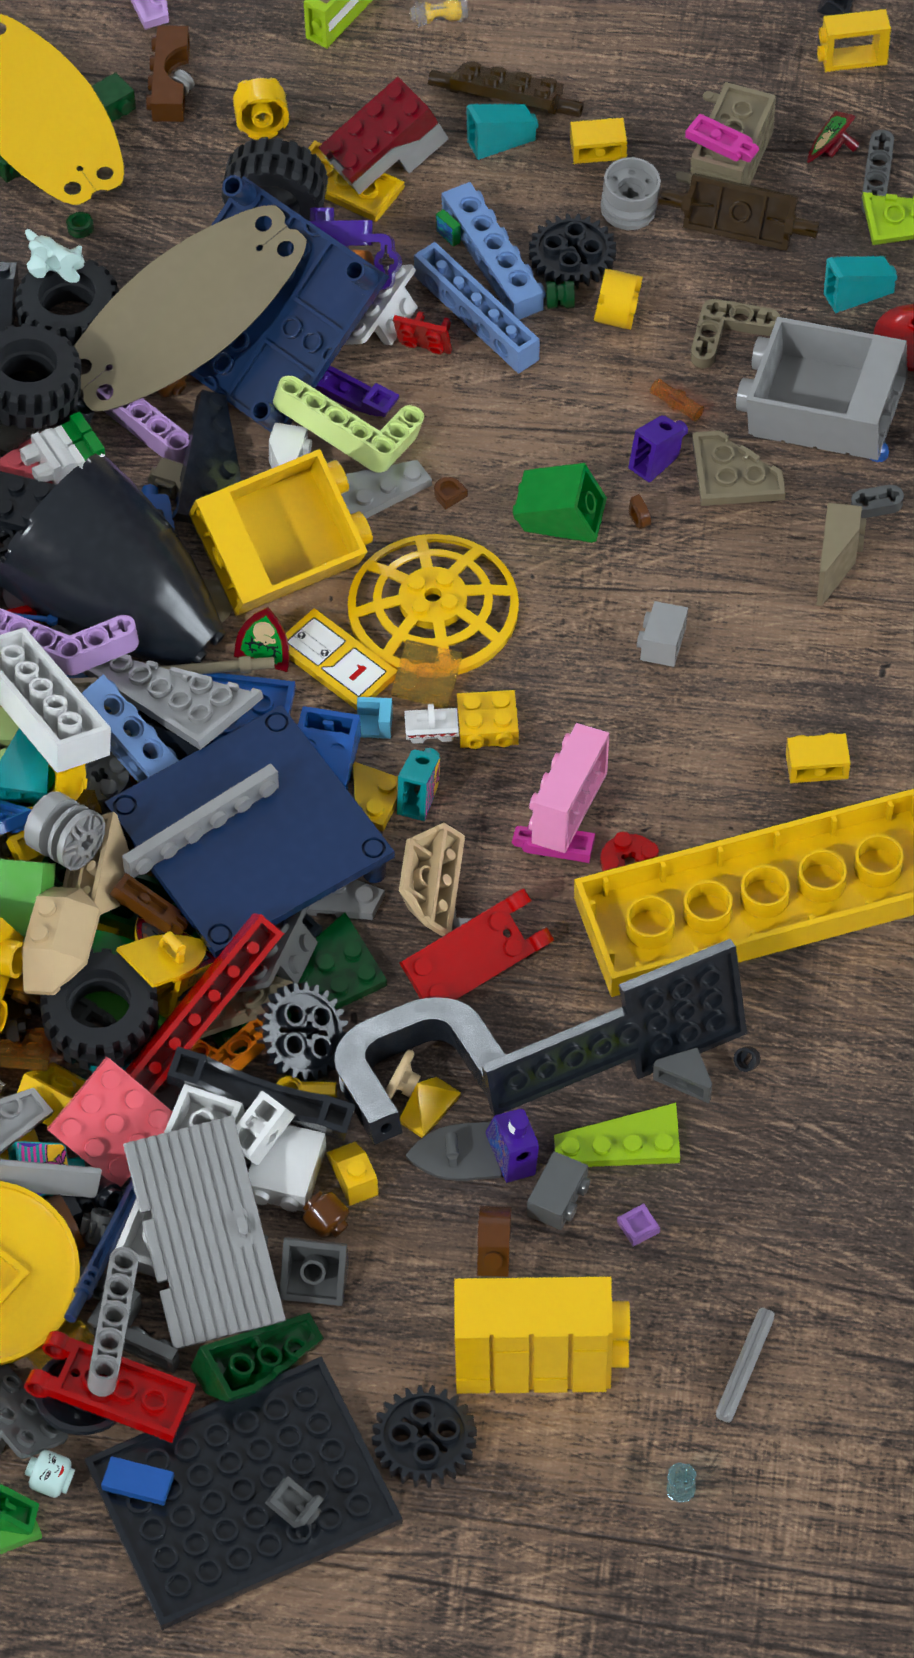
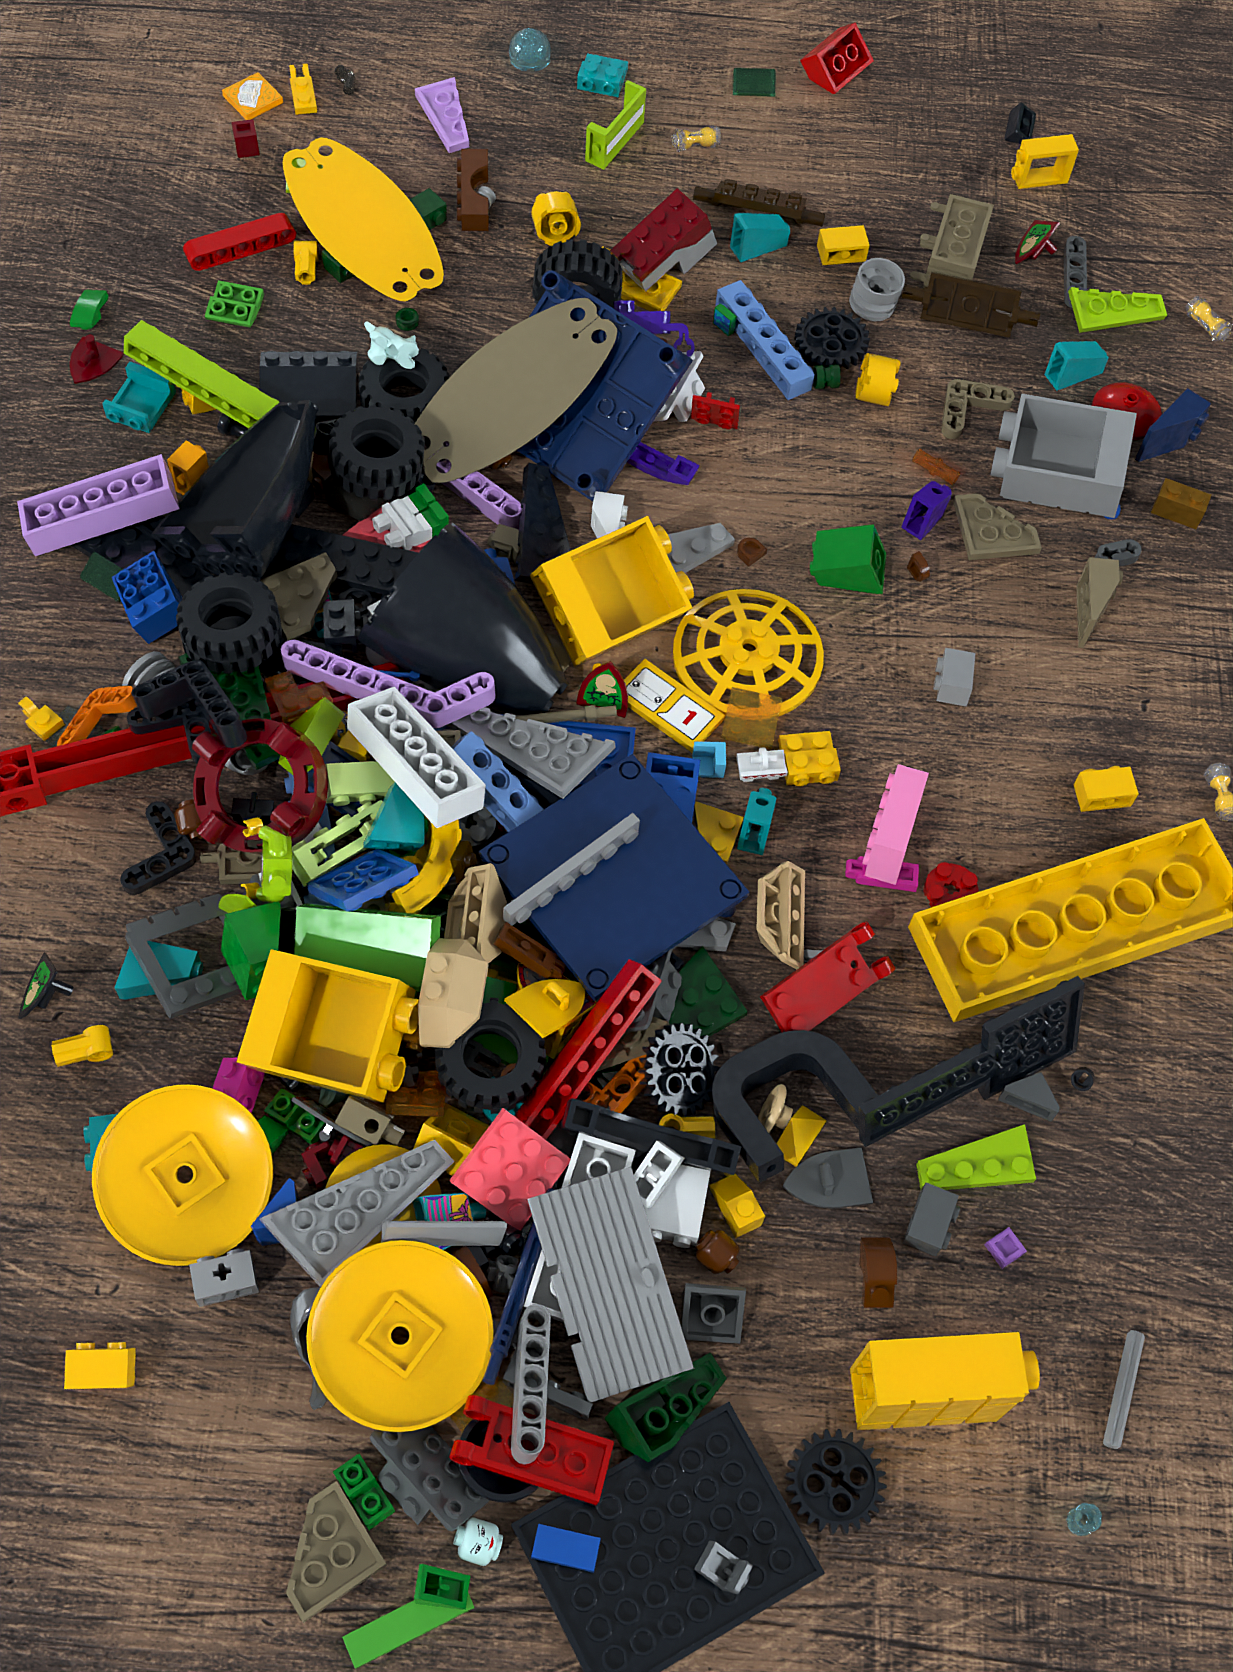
camera: 10 degrees left, 5 degrees up
(64, 830) = (448, 885): light grey wheel -> none
(345, 430) = (657, 496): yellowish green beam -> none
(477, 307) = (758, 388): medium blue brick -> none
(510, 1139) = (885, 1174): dark purple torso -> none
(721, 139) = (956, 241): dark pink hinge -> none

